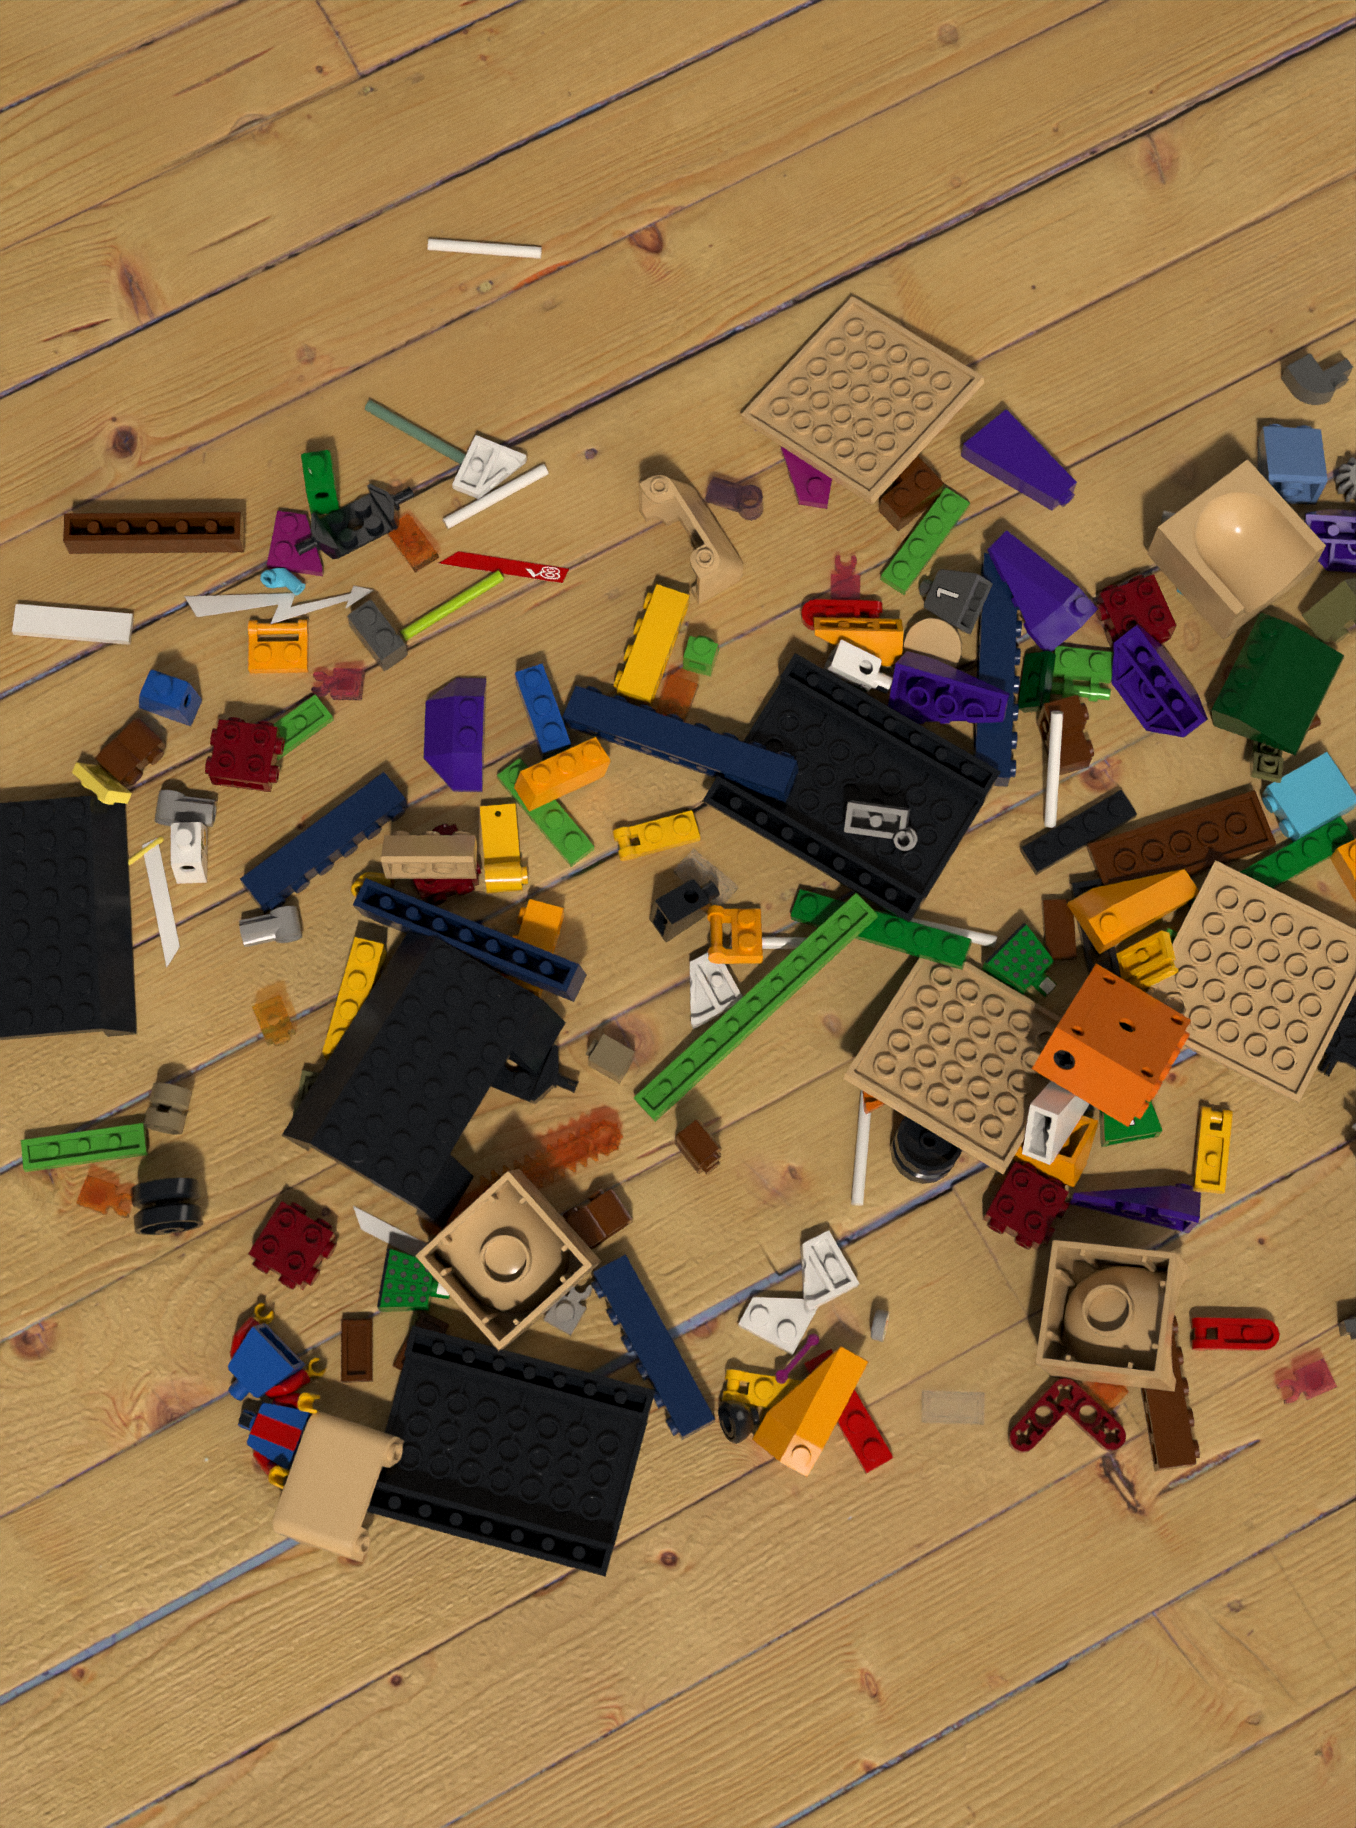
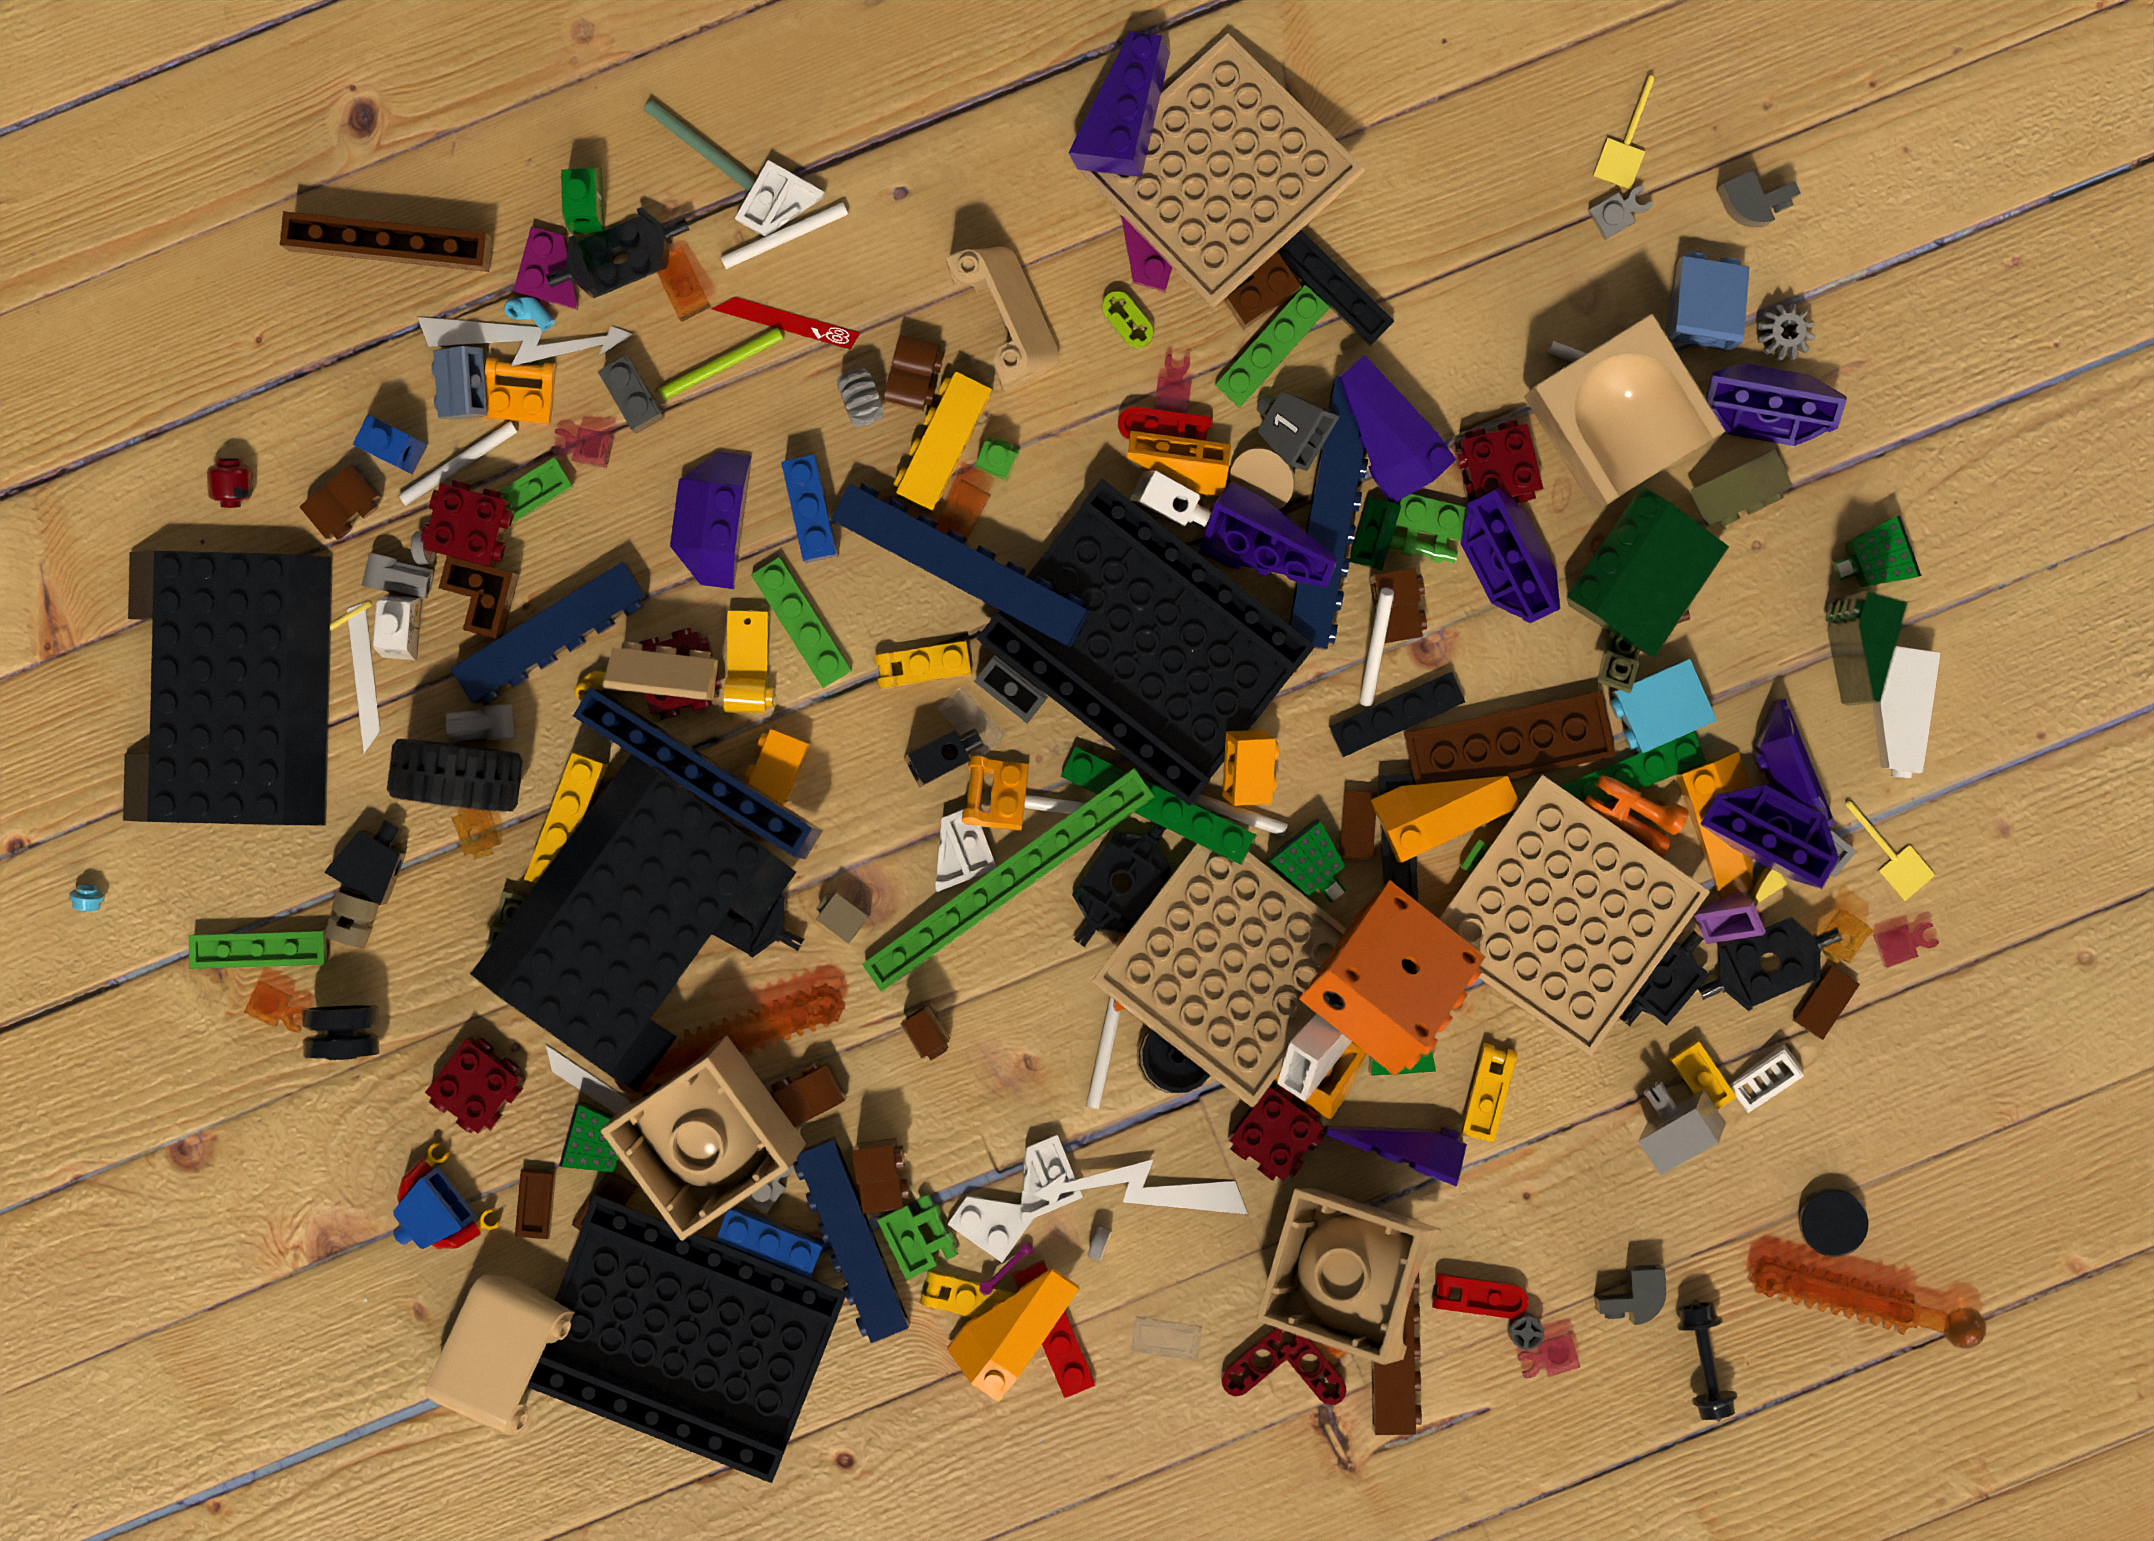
camera: 10 degrees right, 15 degrees up
(31, 746) = (229, 482): none -> dark red head
(72, 624) = (287, 338): white tile -> none
(101, 783) = (304, 538): light yellow plate -> none
(180, 1058) = (370, 863): none -> black torso
(204, 784) = (420, 555): none -> light grey tile
(227, 641) = (459, 383): none -> sand blue brick
(230, 711) = (458, 463): none -> white bar
(253, 961) = (454, 775): none -> black tyre
(267, 810) = (489, 591): none -> reddish brown brick
(278, 1432) = (441, 1290): torso -> none
(562, 774) = (823, 587): light orange brick -> none
(576, 615) = (860, 397): none -> light grey gear
(578, 1353) = (770, 1240): none -> blue brick
(618, 593) = (912, 373): none -> reddish brown brick
(669, 1278) = (879, 1175): none -> reddish brown brick
(705, 1345) = (908, 1242): none -> bright green plate
(733, 497) = (1057, 268): piece -> none
(737, 843) = (1011, 689): none -> dark grey brick
(737, 1420) = (933, 1328): black brick -> none
(774, 362) = (1124, 112): none -> dark purple wedge
(802, 528) = (1121, 326): none -> lime beam
(848, 1024) = (1119, 910): none -> black plate
(882, 822) = (1172, 689): light grey hinge -> none
(957, 886) = (1249, 767): none -> light orange brick
(971, 1273) = (1202, 1196): none -> white sticker
(974, 487) = (1335, 288): none -> black plate
(1019, 461) = (1394, 262): dark purple slope -> none
(1148, 961) = (1448, 880): yellow plate -> none
(1195, 364) = (1619, 160): none -> light yellow piece
(1200, 405) = (1616, 214): none -> light grey plate
(1287, 1360) = (1526, 1337): none -> dark grey wheel
(1330, 890) = (1669, 817): none -> orange piece

